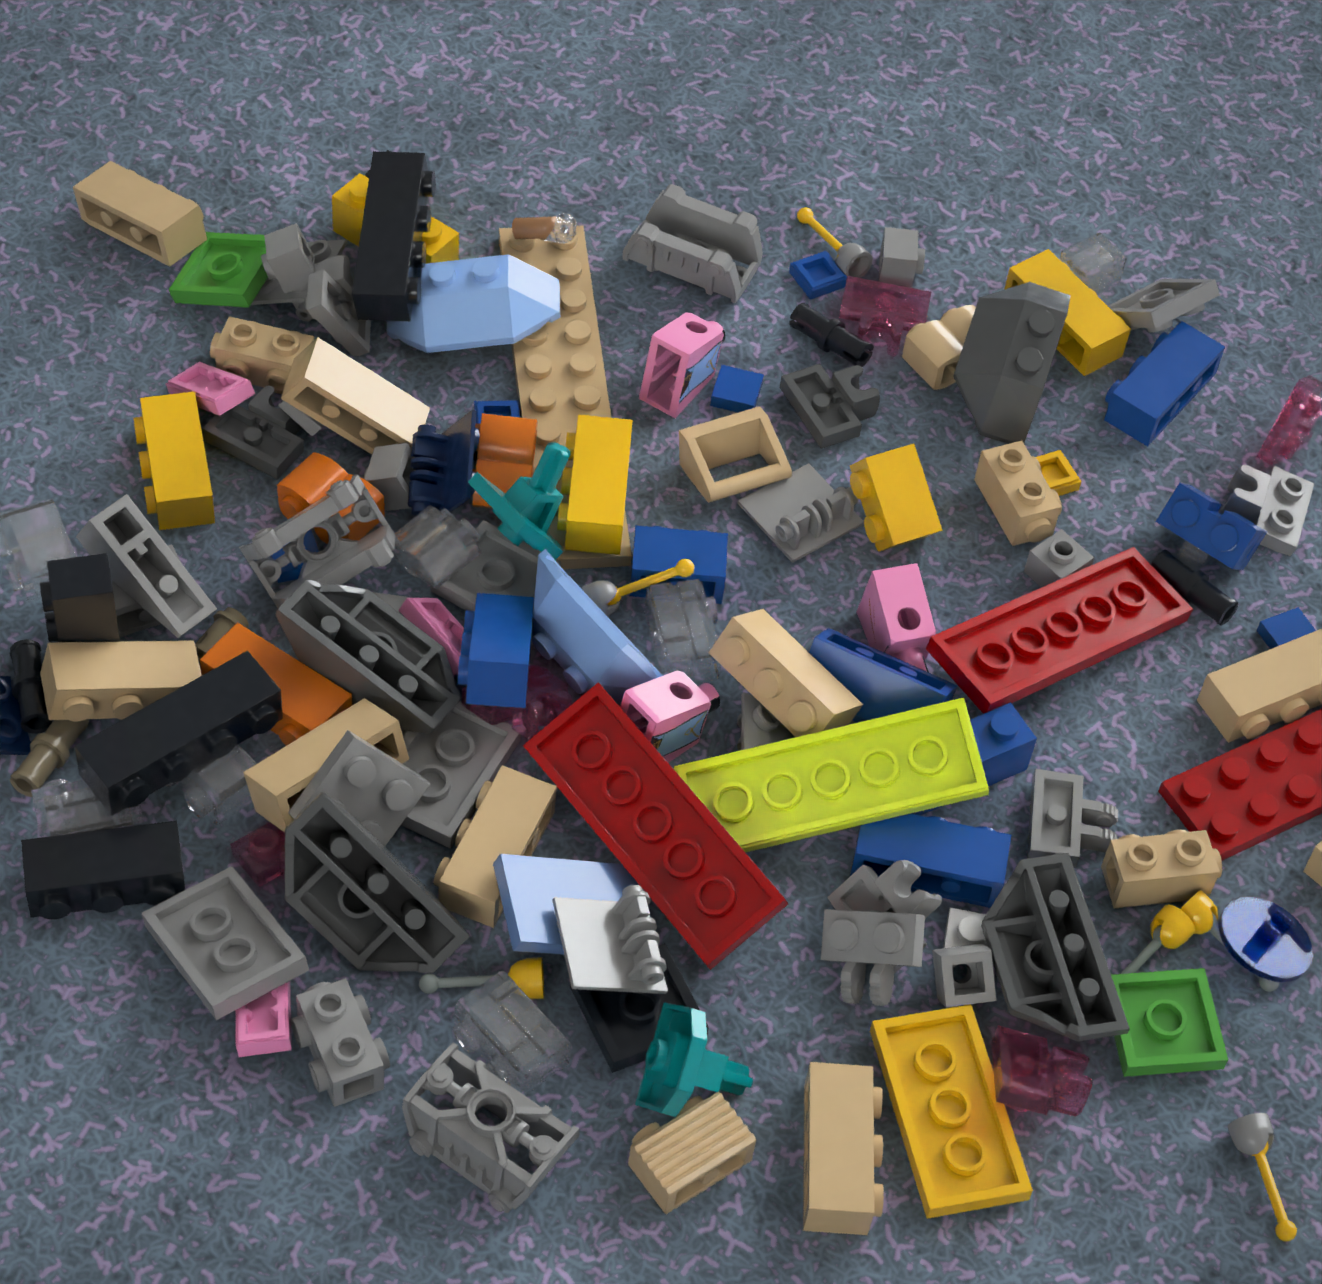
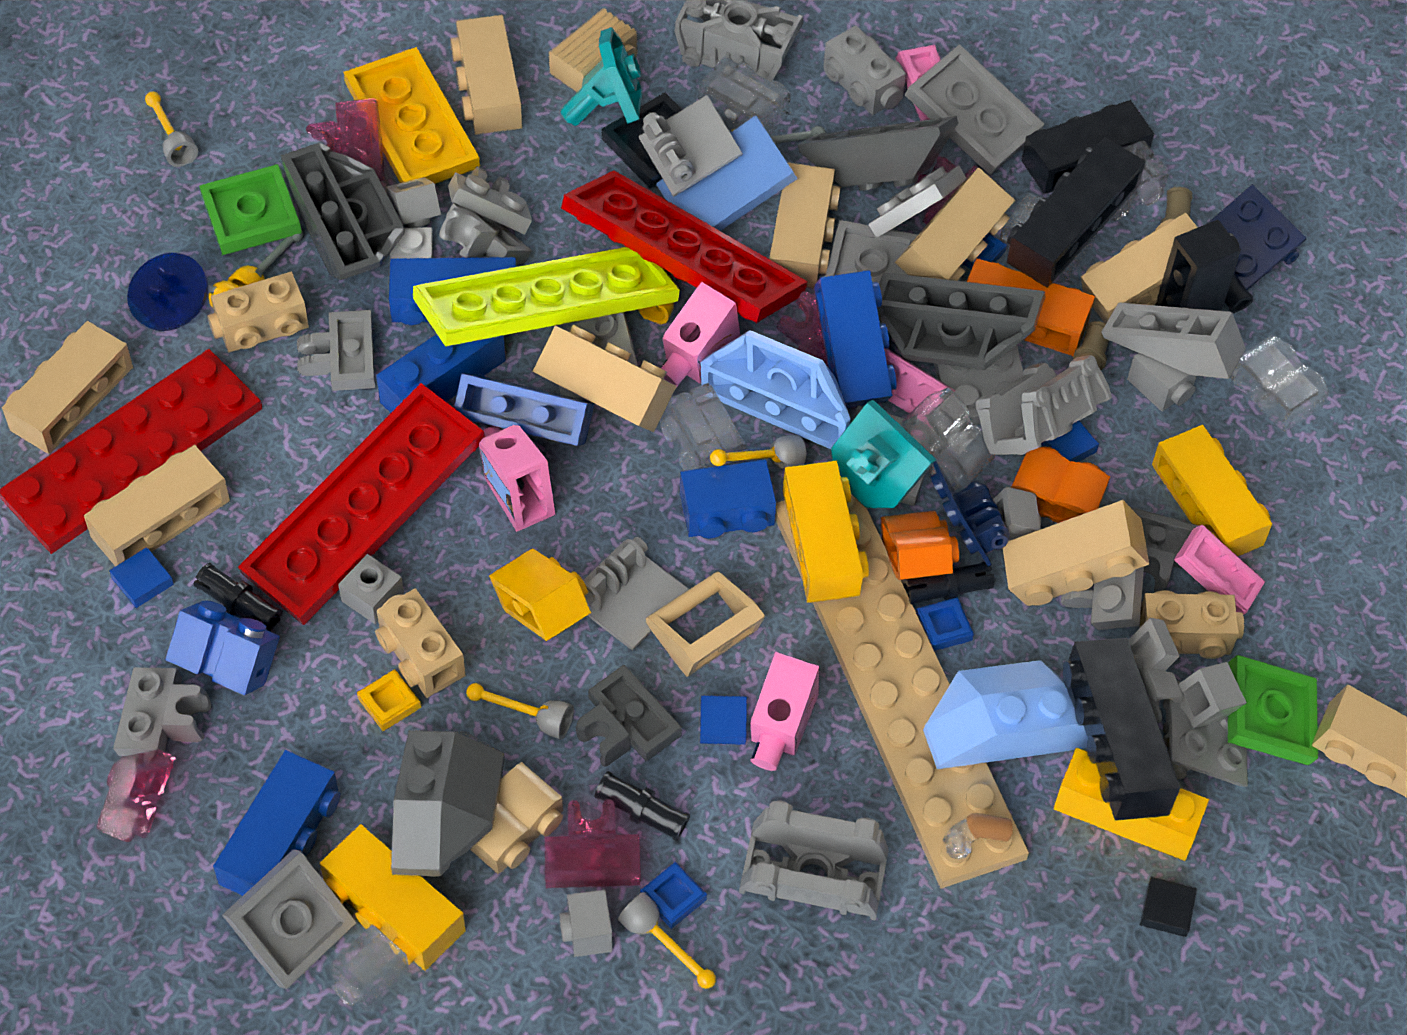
camera: 170 degrees right, 5 degrees up
(899, 420) = (552, 717): none -> hinge

